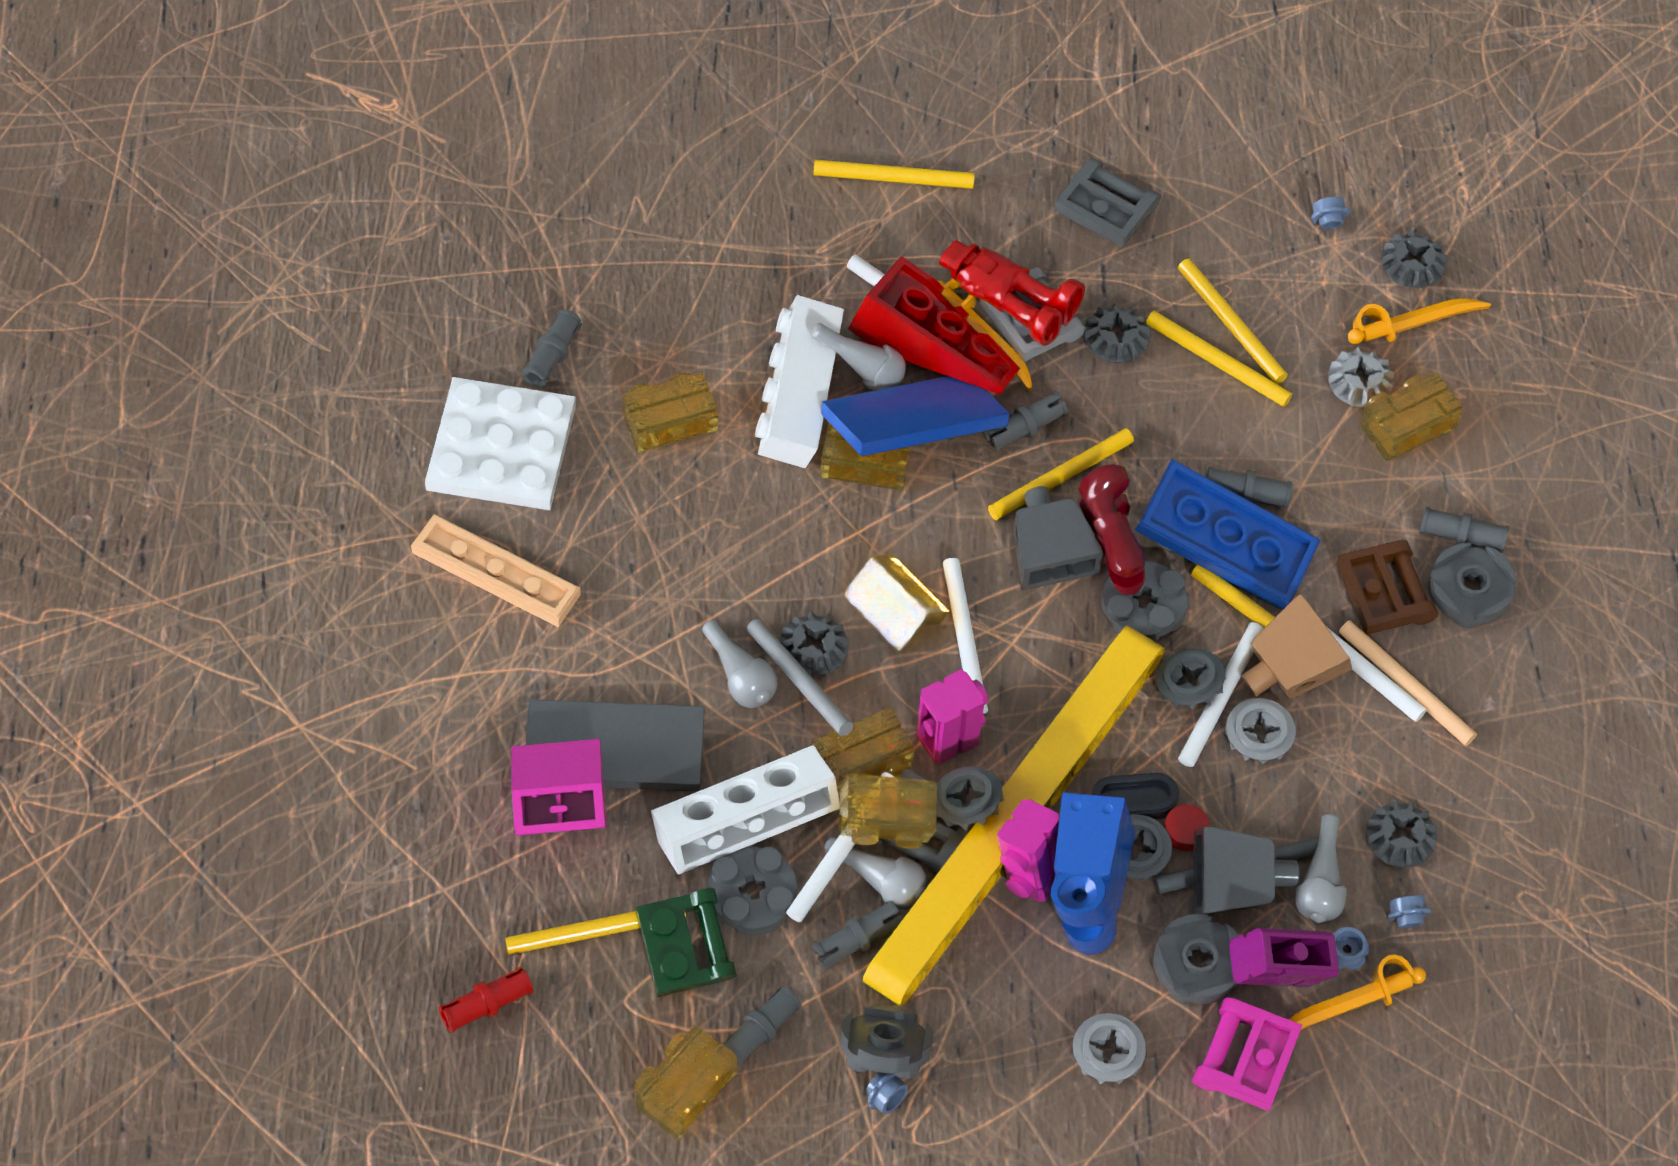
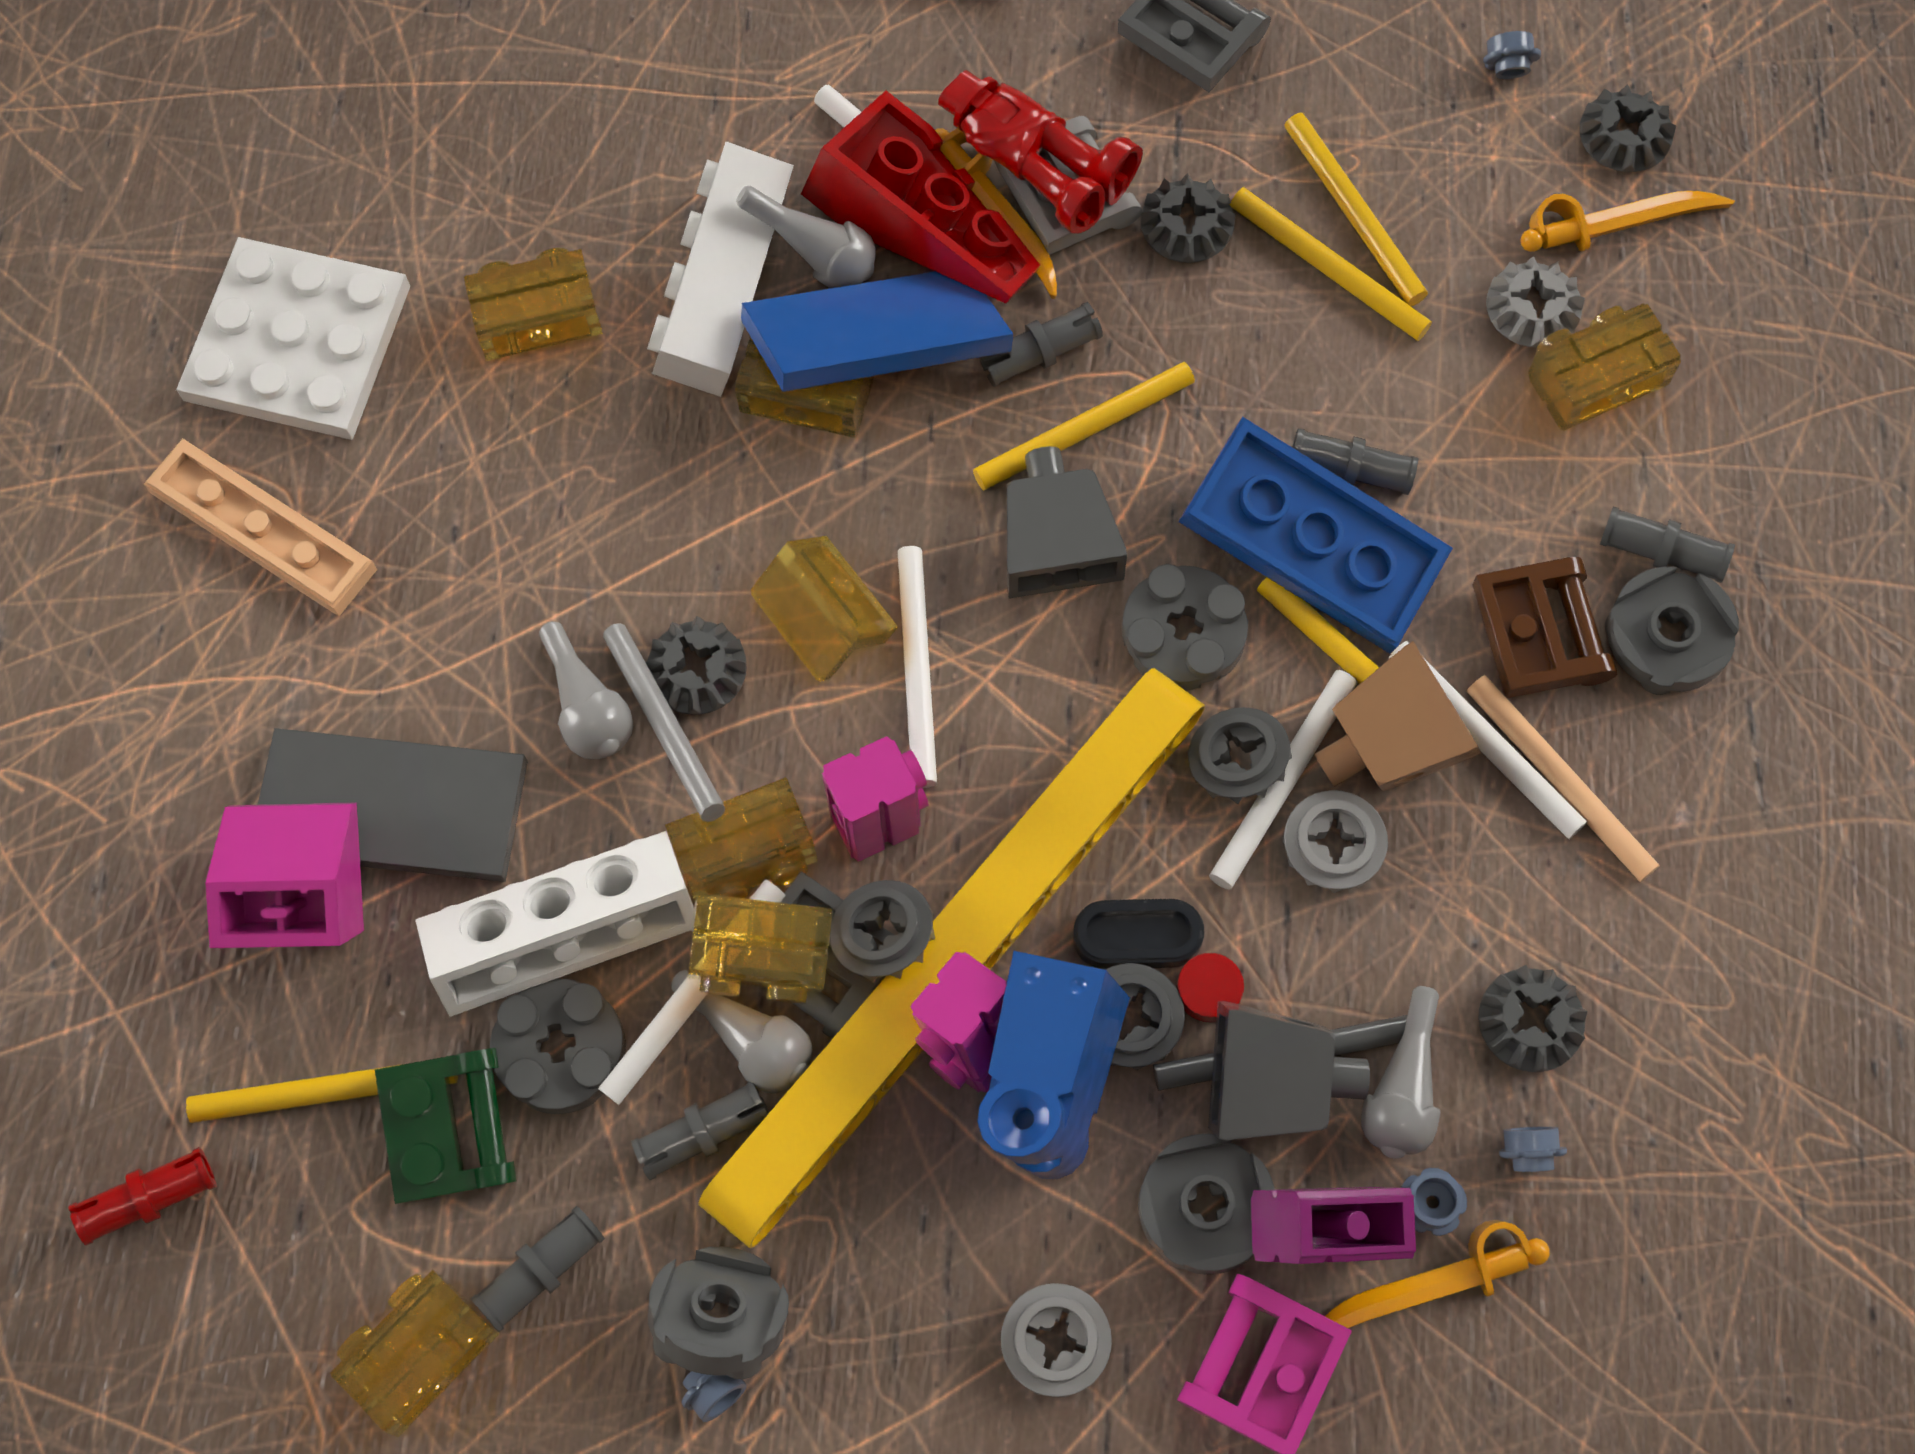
camera: 10 degrees right, 10 degrees up
(551, 348) = (382, 202): dark grey pin -> none
(1106, 513) = (1137, 483): dark red piece -> none

